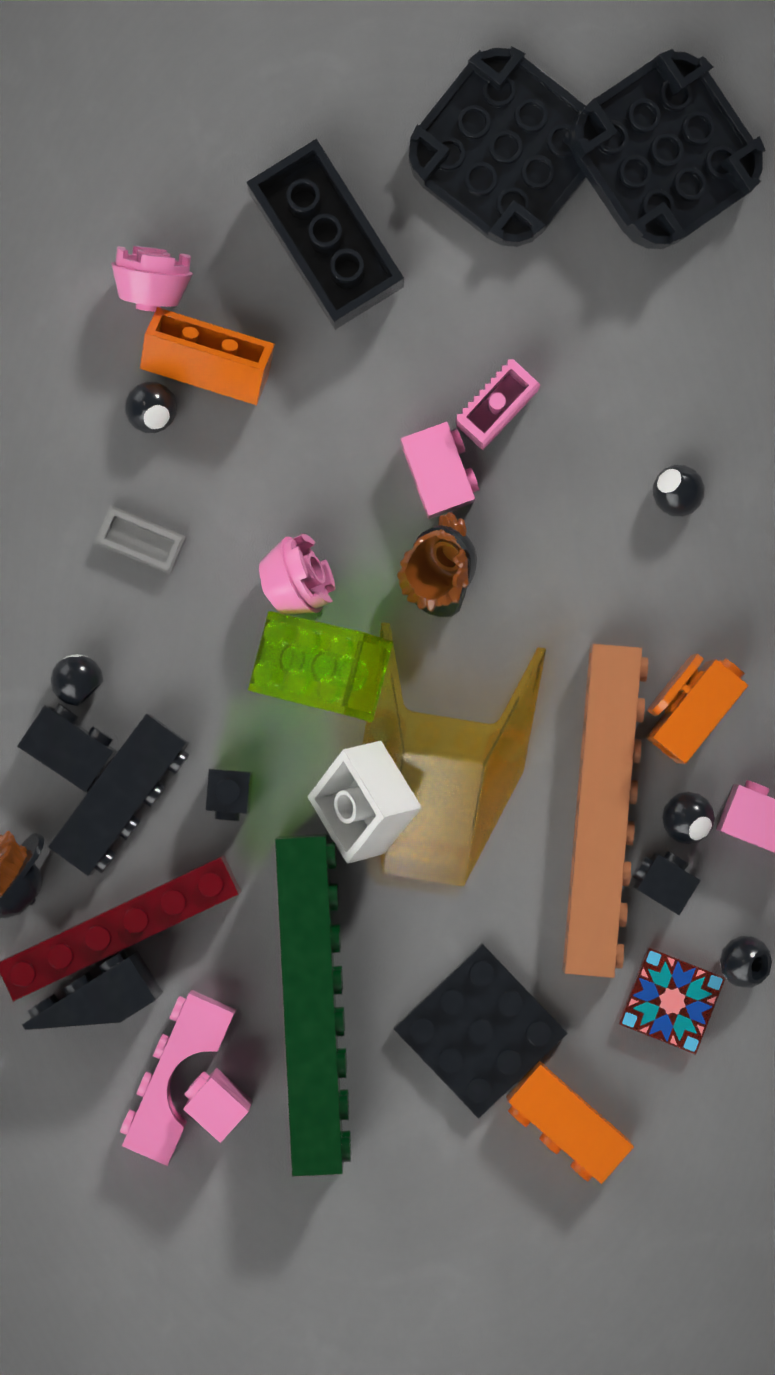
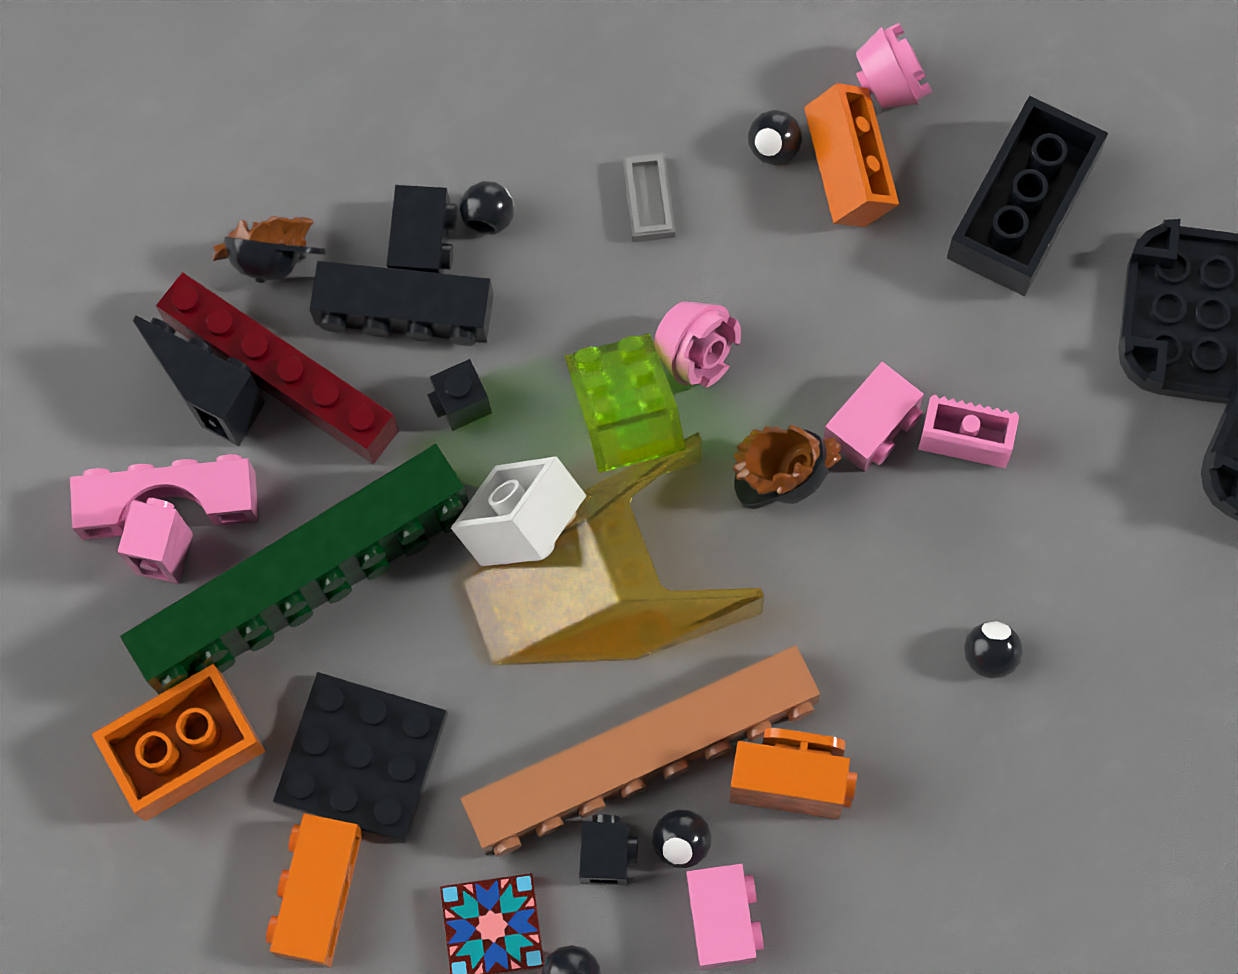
camera: 65 degrees right, 15 degrees down
(393, 1170) = (178, 743): none -> orange brick

